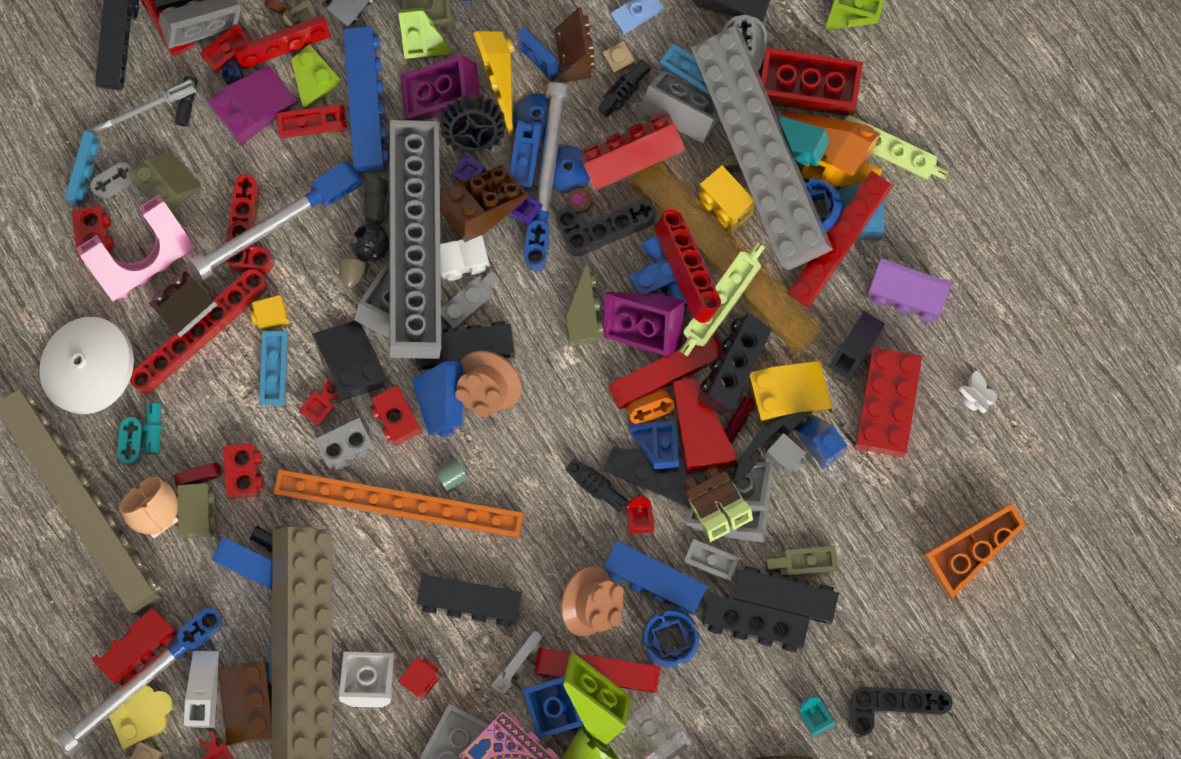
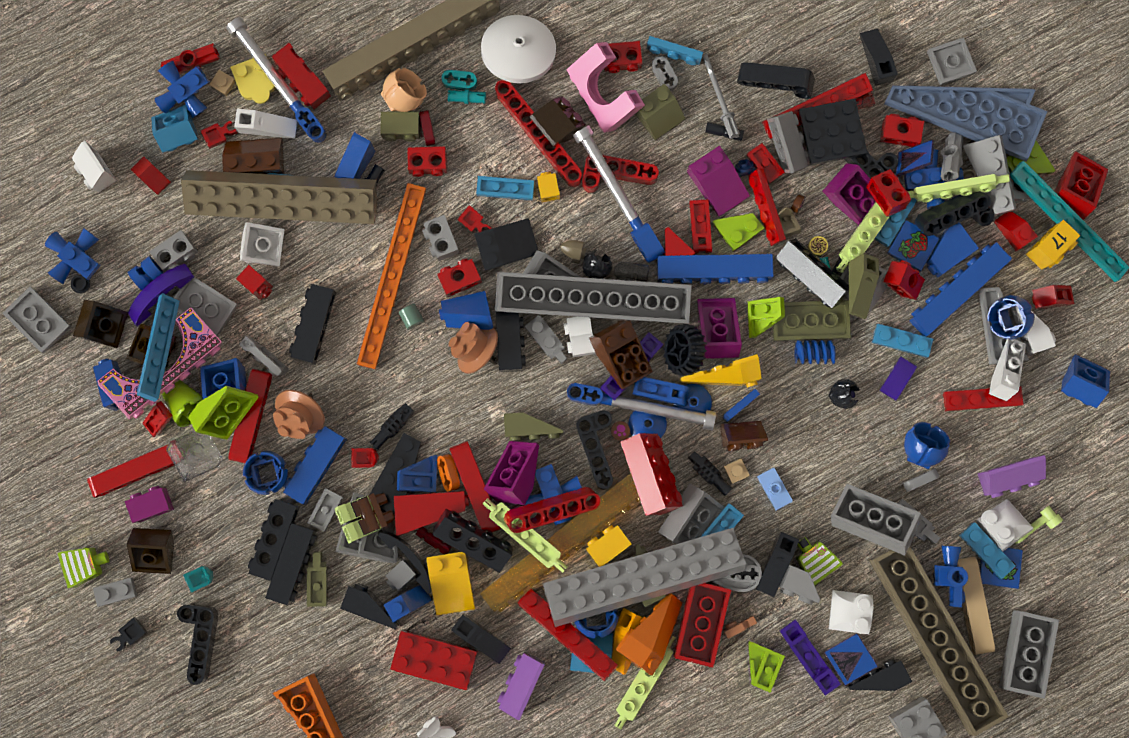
camera: 90 degrees right, 5 degrees up
(338, 149) = (675, 245): none -> red slope
(805, 140) = (646, 612): teal slope -> none
(811, 42) = (735, 628): none -> nougat plate
(826, 495) = (367, 605): none -> black slope

